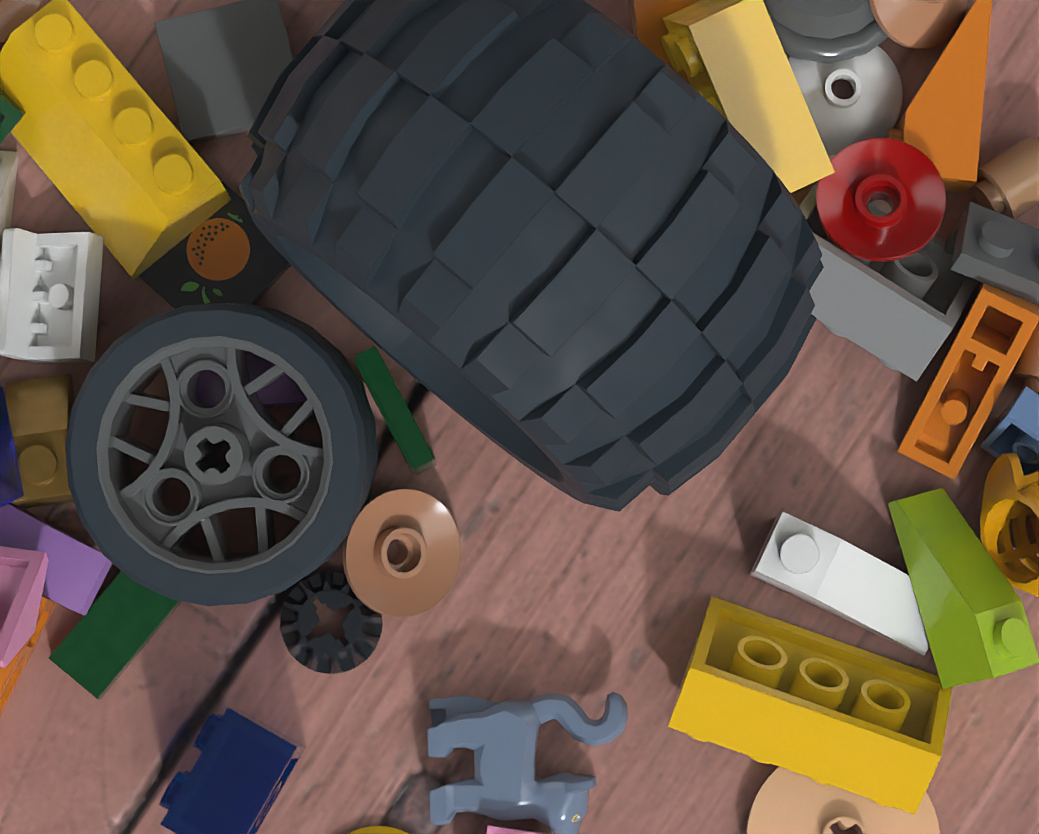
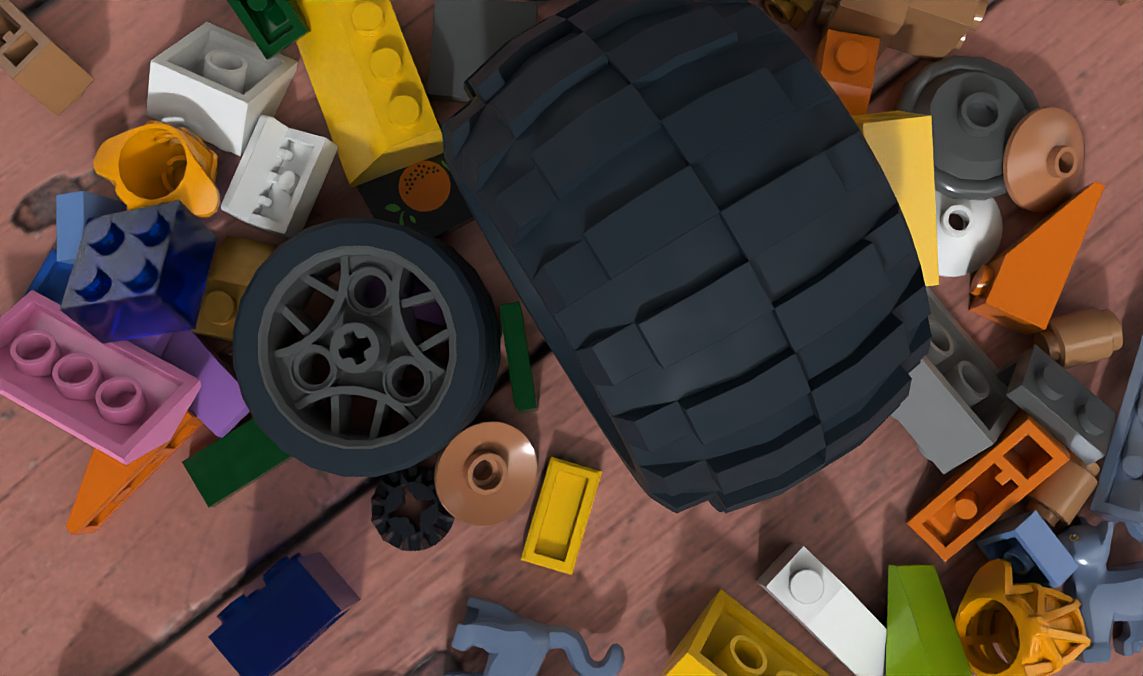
camera: 20 degrees right, 0 degrees up
(503, 573) = (561, 515): none -> yellow tile
(885, 172) = (985, 307): red dish -> none

